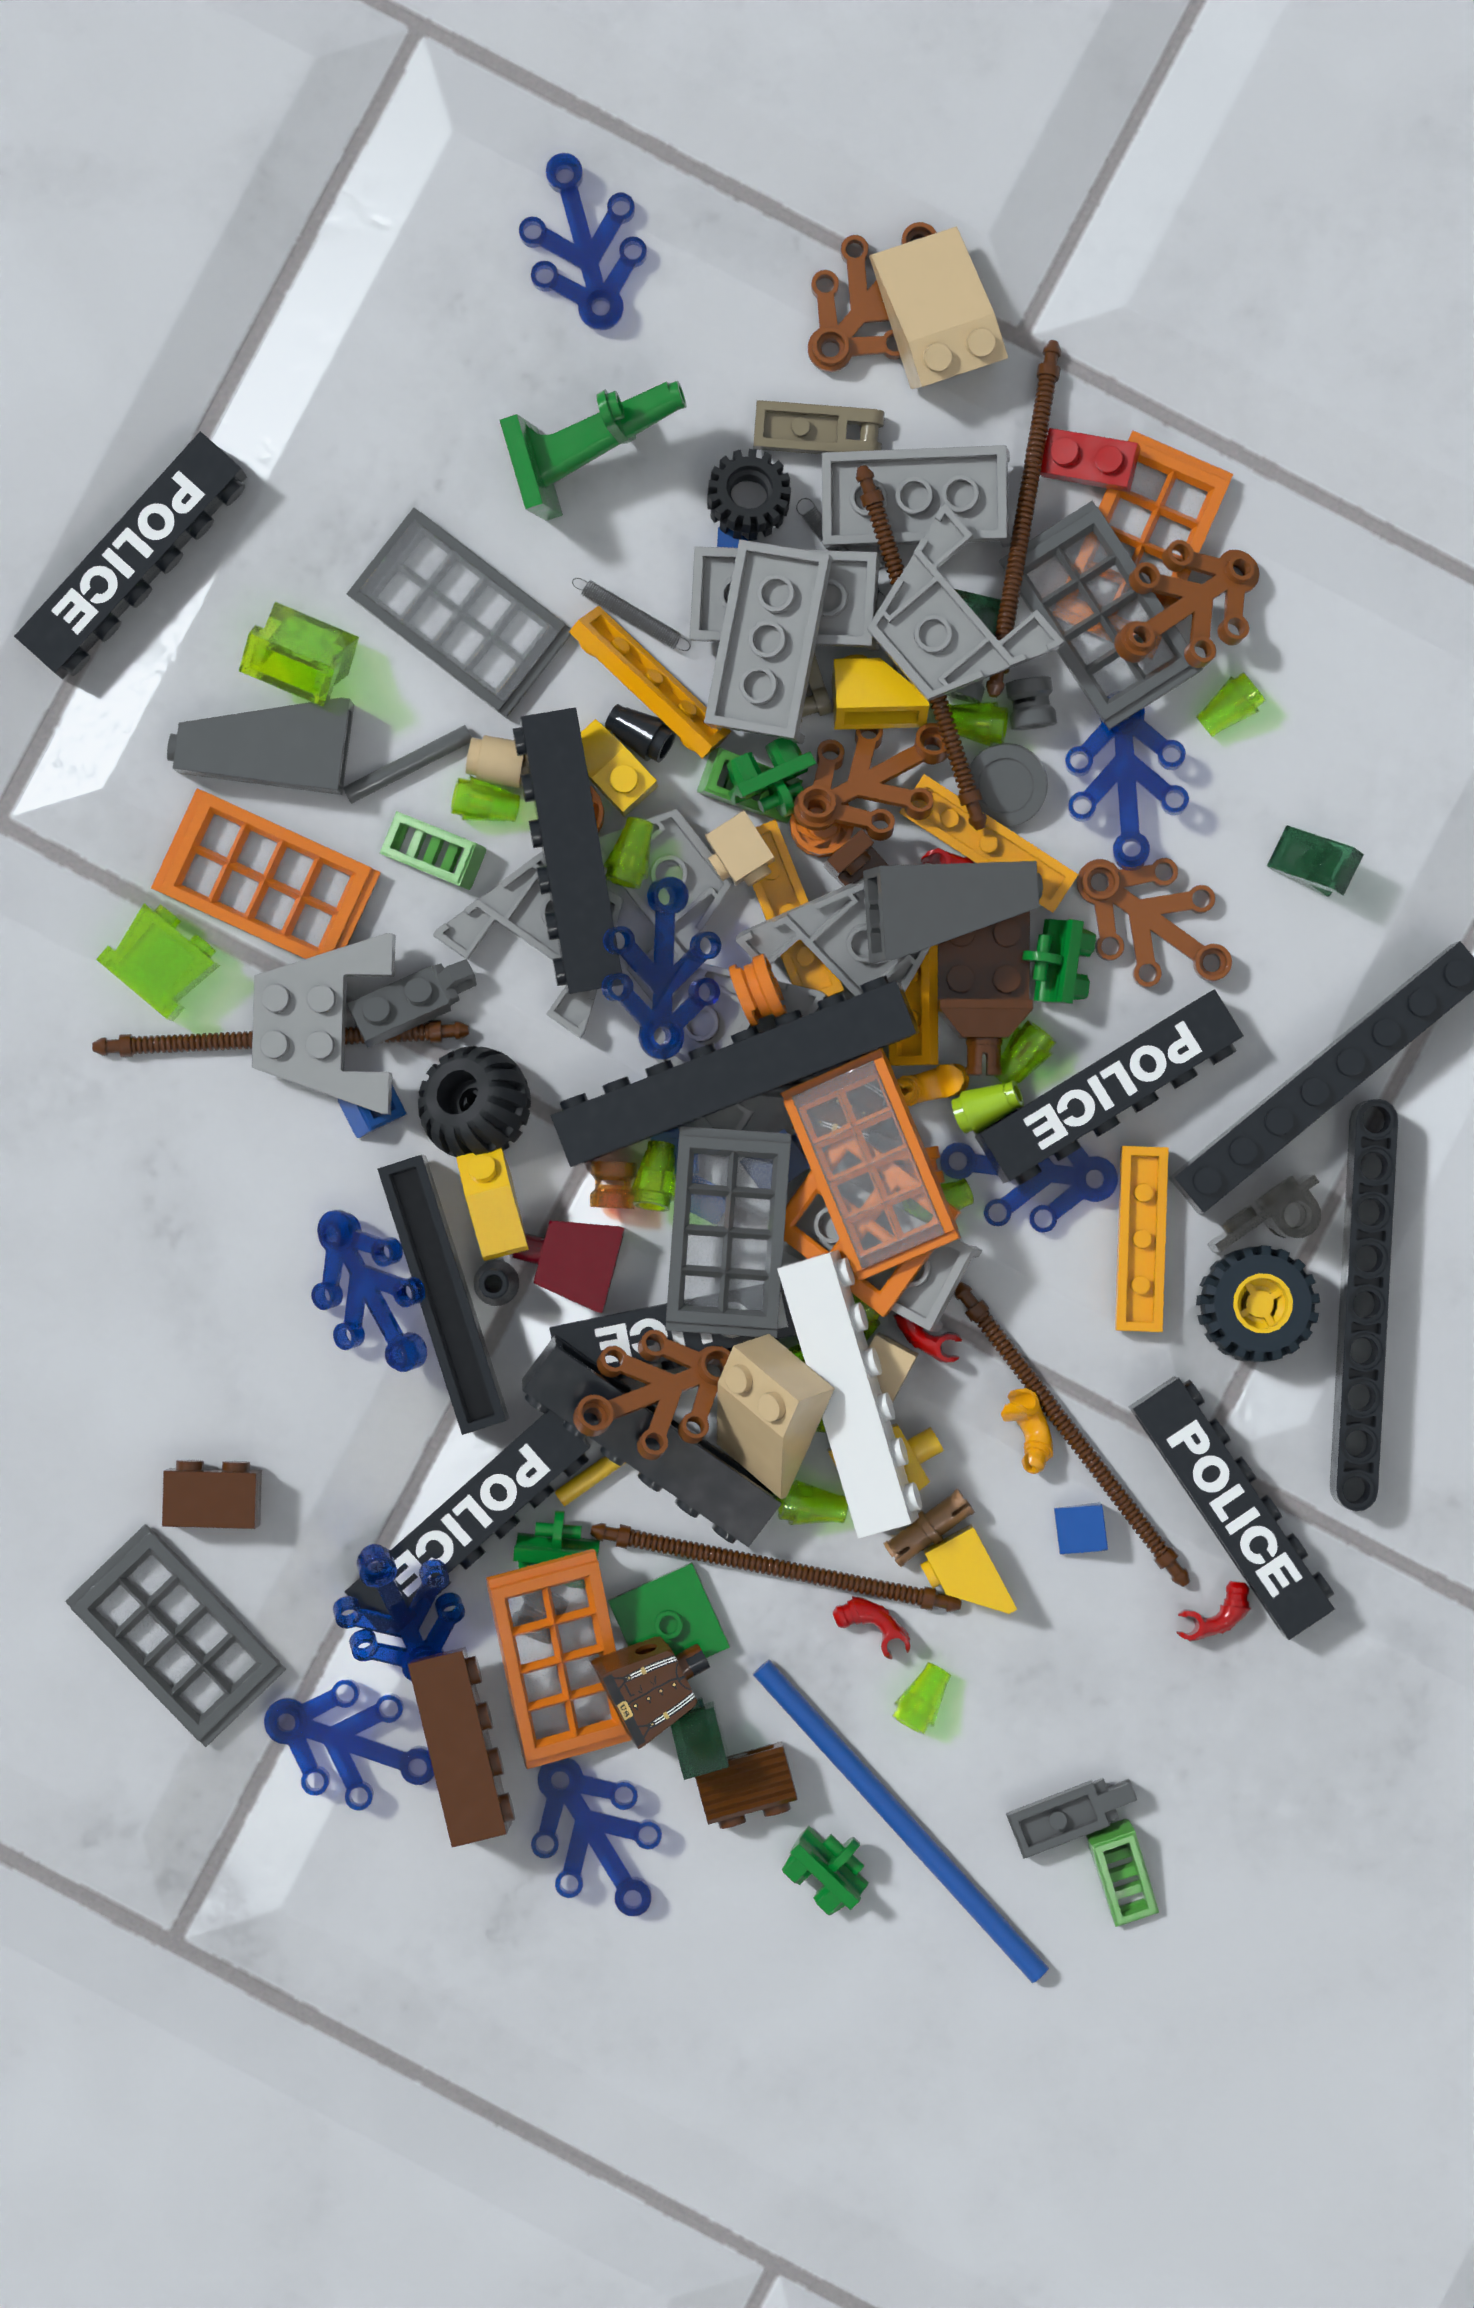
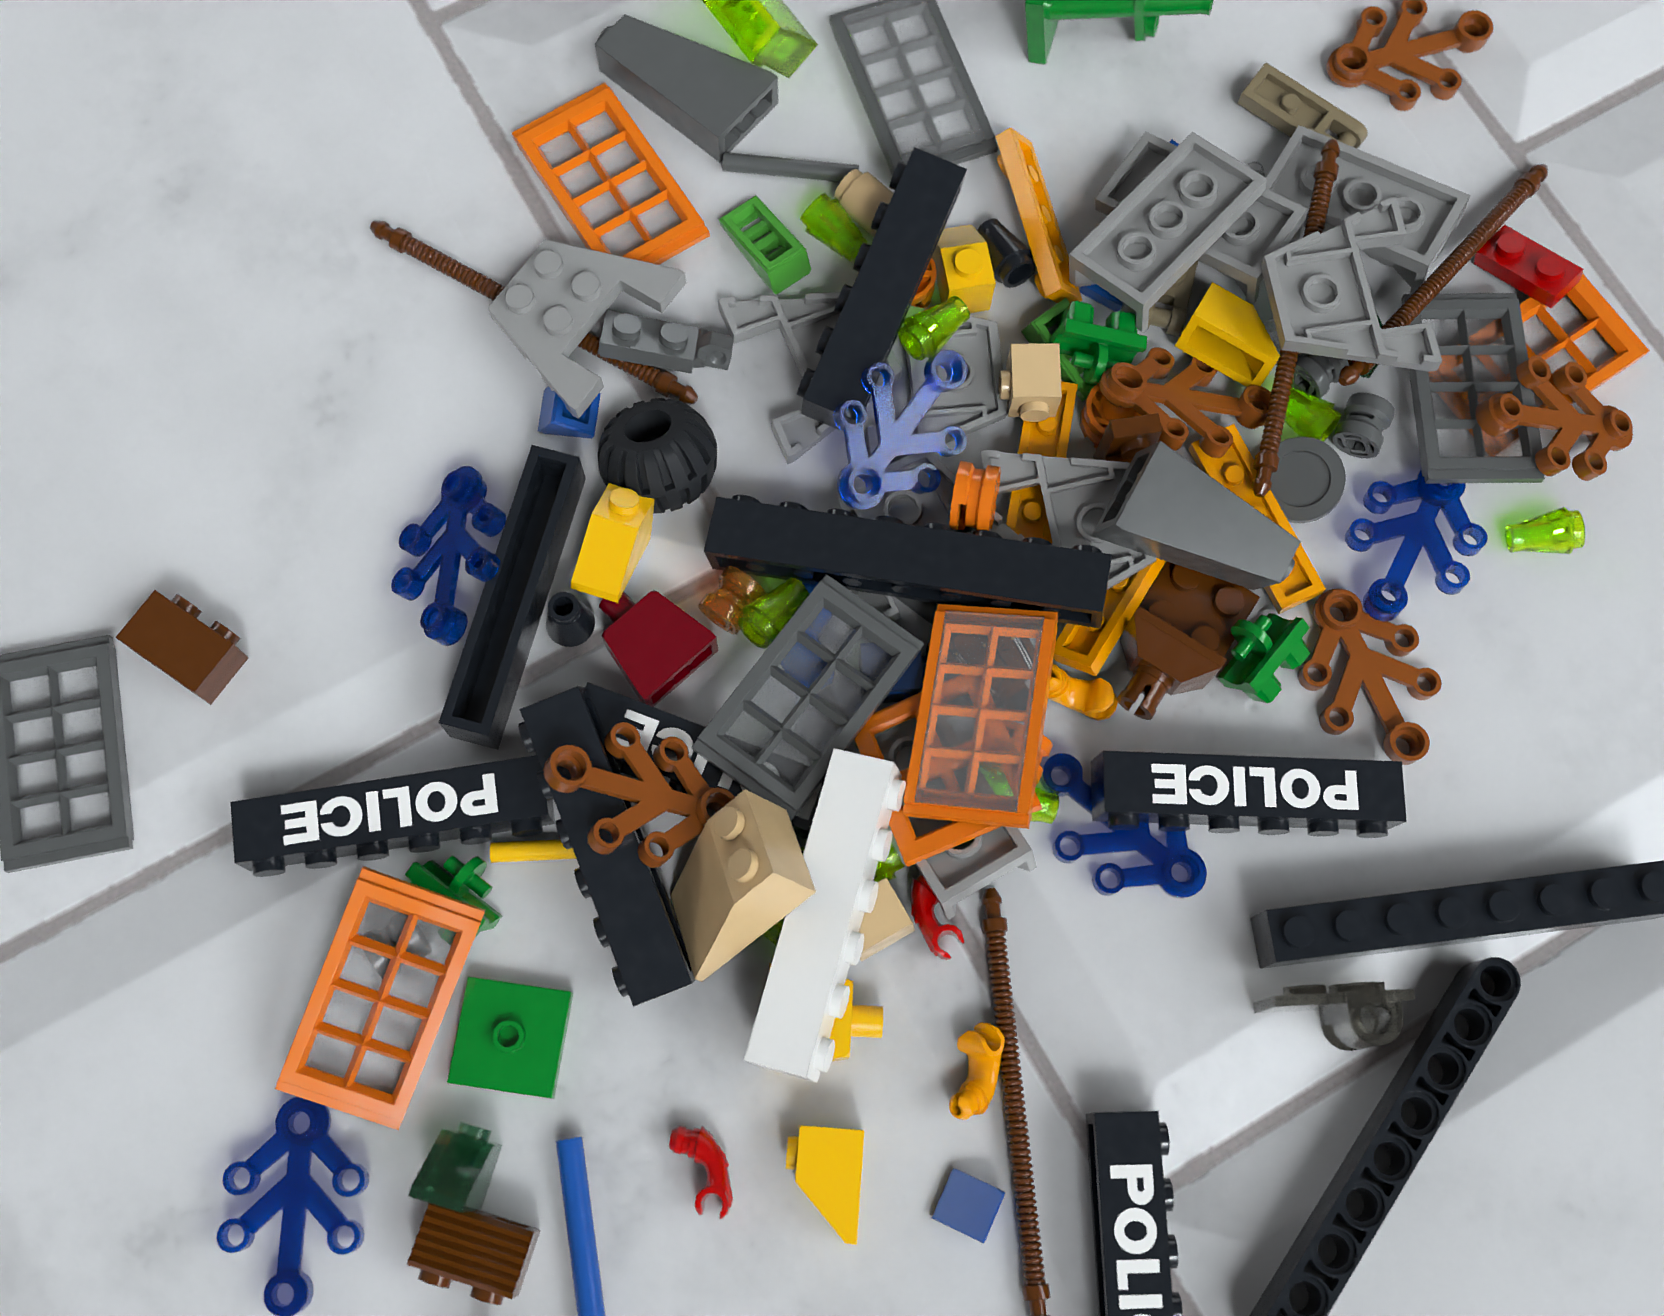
camera: 25 degrees right, 15 degrees down
(160, 960) = (476, 187): clear neon green hips -> none
(342, 1740) = (130, 948): clear blue plant -> none
(402, 1621) = (260, 861): clear blue plant -> none
(460, 1746) = (222, 1023): reddish brown wedge -> none
(586, 590) = (1061, 172): dark grey piece -> none
(626, 1537) = (528, 928): reddish brown hose -> none
(649, 1685) = (446, 1081): reddish brown torso -> none
(752, 469) = (1221, 108): black tyre -> none
(812, 1505) = (720, 1009): clear neon green cone -> none
(922, 1699) = (704, 1277): clear neon green cone -> none
(929, 1528) = (819, 1105): medium nougat pin -> none
(937, 308) = (1462, 83): tan slope -> none
(985, 1106) = (1117, 734): lime cone -> none
(1025, 1052) = (1181, 717): clear neon green cone -> none
(1141, 1238) = (1194, 957): light orange plate -> none
(1258, 1304) = (1277, 1090): black wheel -> none
(1315, 861) = (1557, 711): clear green slope -> none

